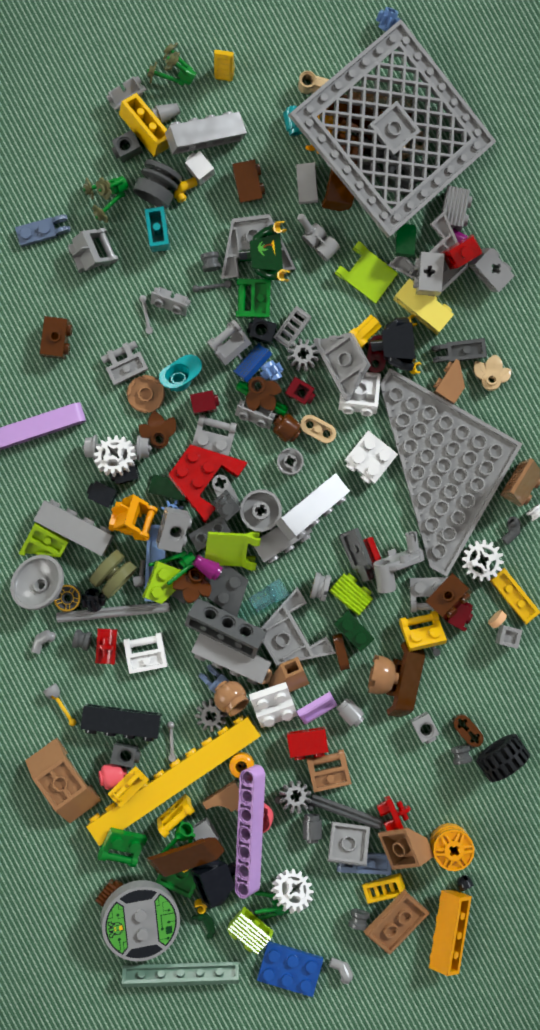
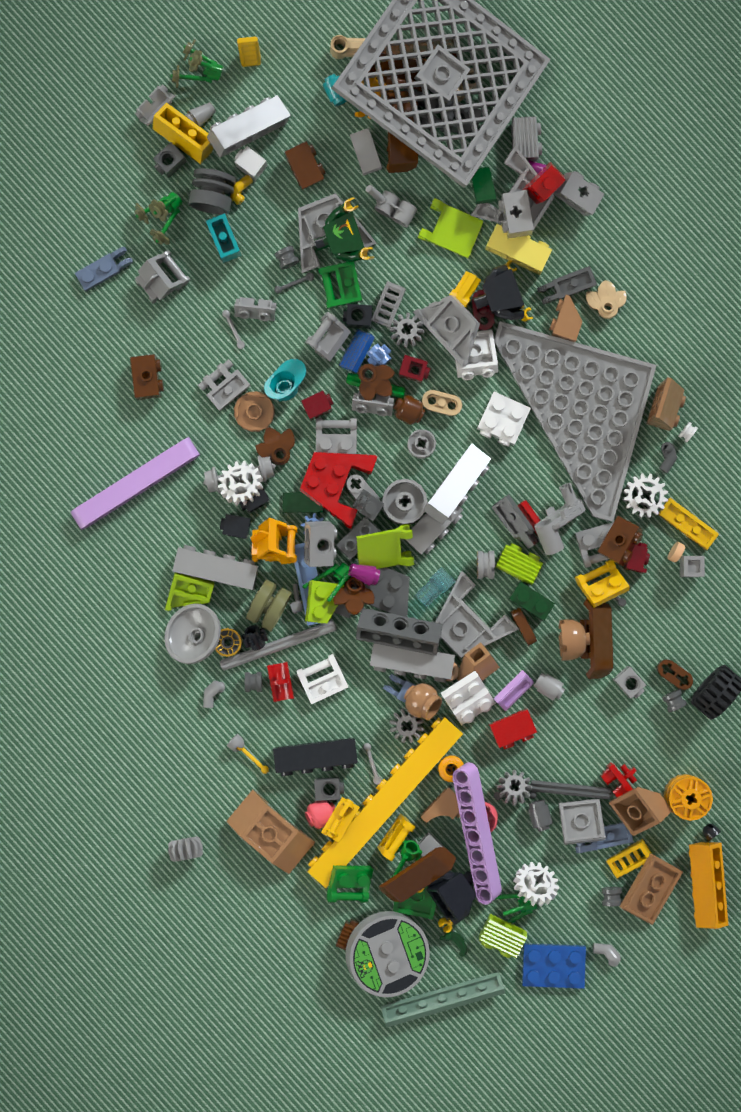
camera: 15 degrees left, 0 degrees up
(329, 777) = (545, 758): medium nougat plate -> none

